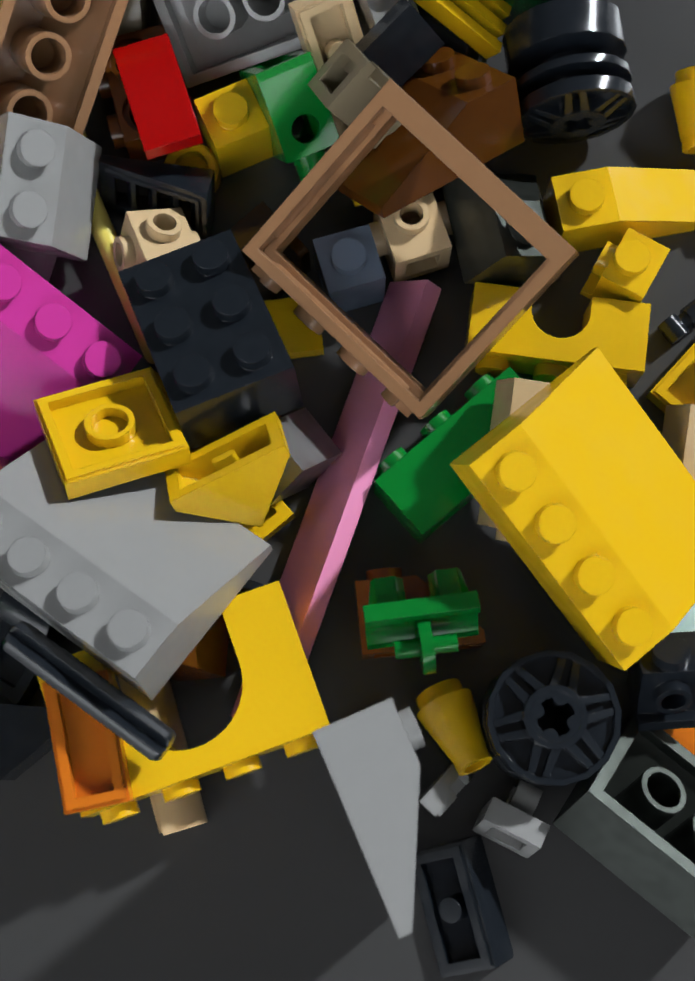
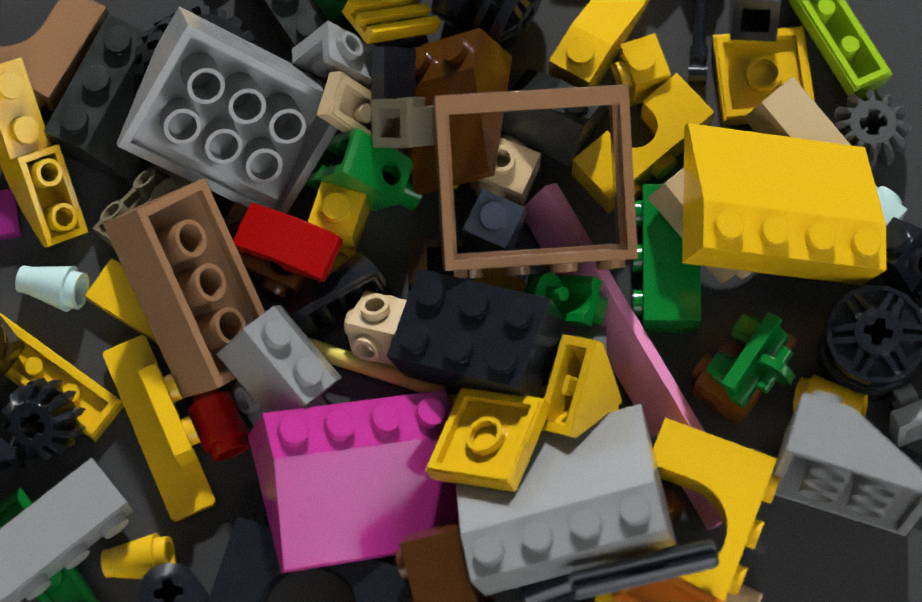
camera: 45 degrees left, 5 degrees down
(330, 391) = (573, 296): none -> green hips

